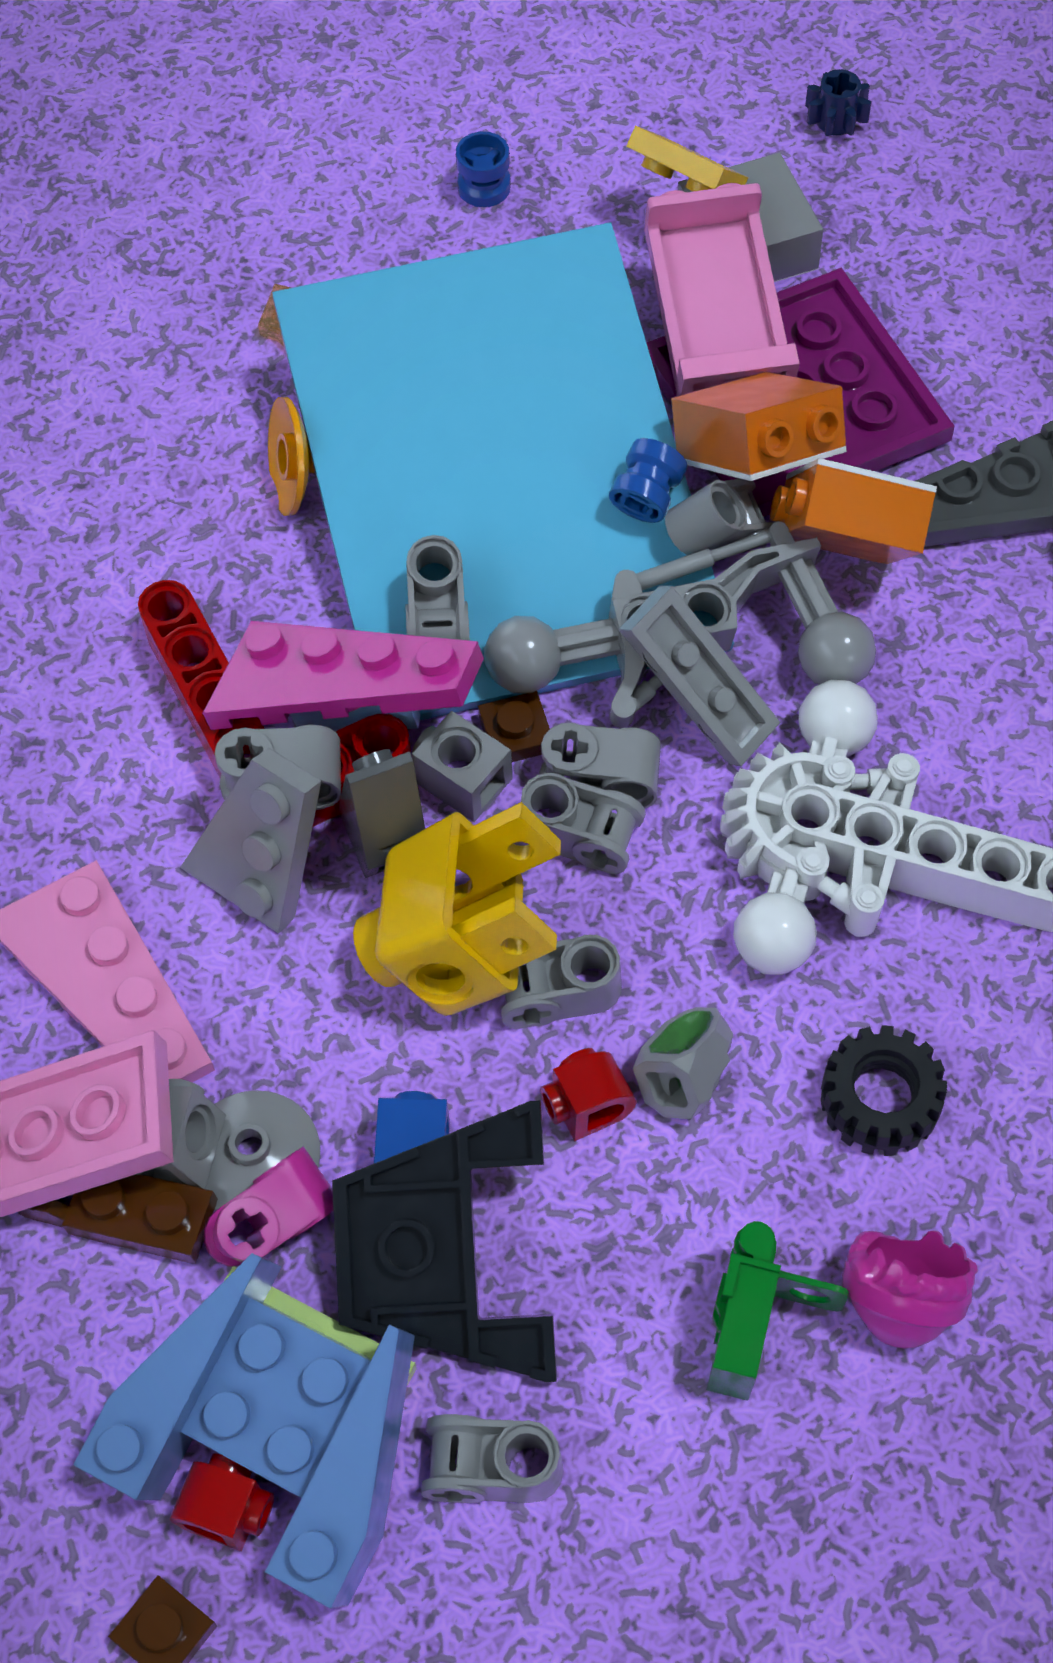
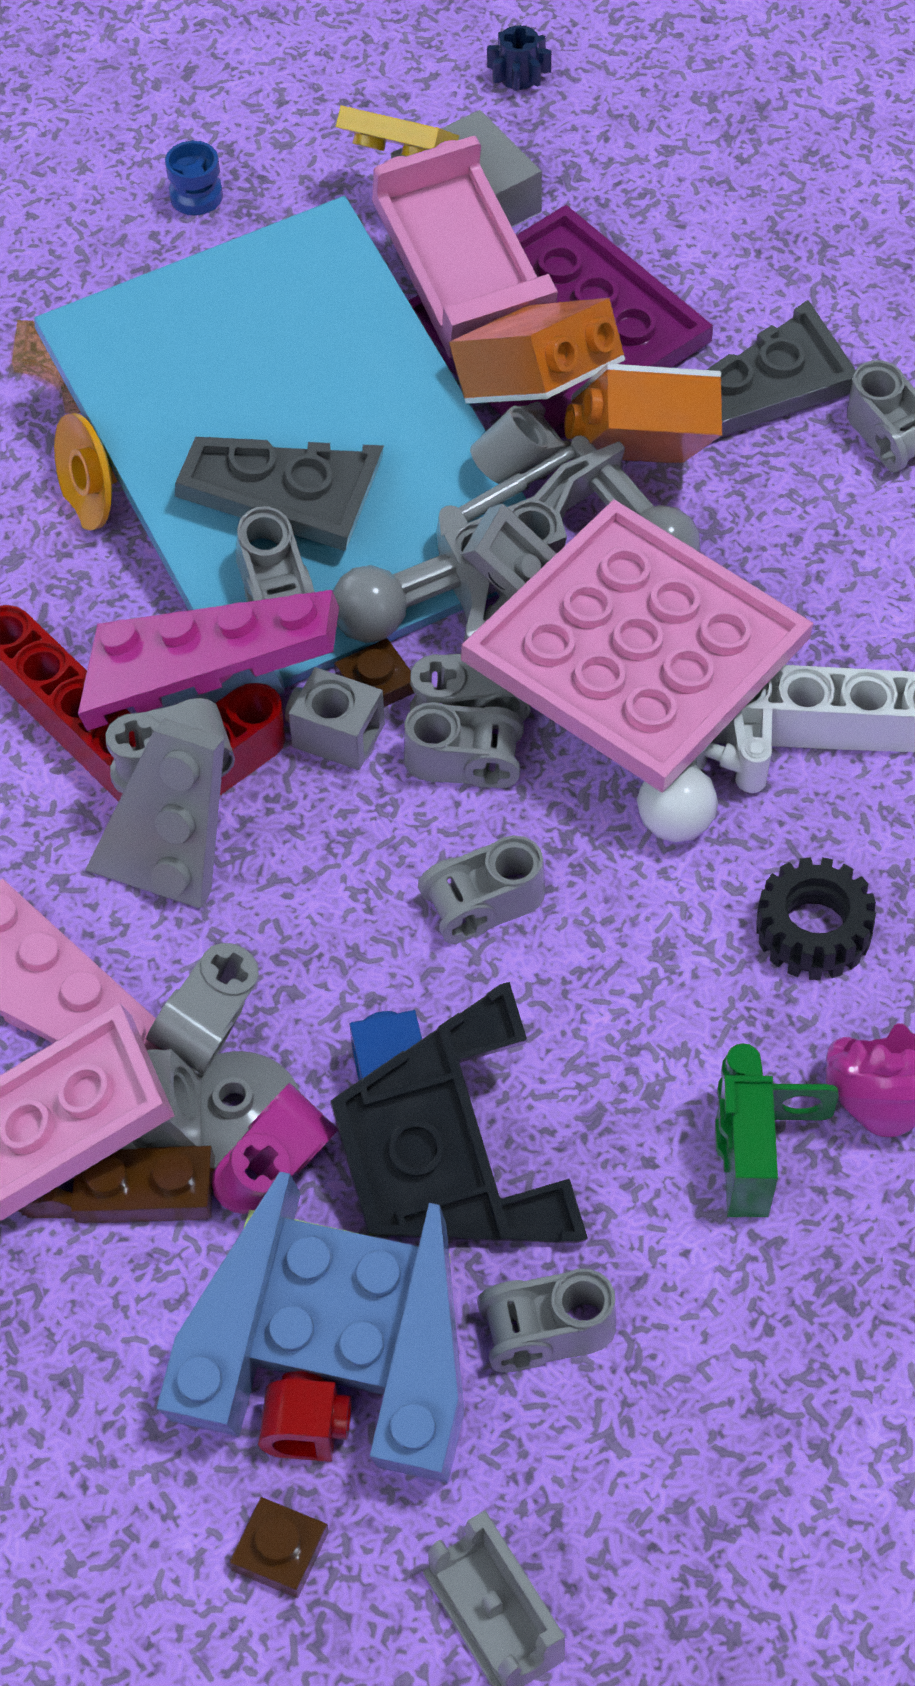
camera: 15 degrees left, 5 degrees down
(241, 1049) = (206, 1005): none -> light grey piece
(380, 807) = (280, 766): dark grey slope -> none
(464, 939) = (386, 863): yellow piece -> none
(492, 521) = (312, 486): none -> dark grey wing
(587, 1093) = (545, 980): red plate -> none
(646, 484) = (446, 414): blue wheel -> none
(684, 1062) = (625, 934): light grey rock -> none
(774, 761) = (637, 644): none -> bright pink plate

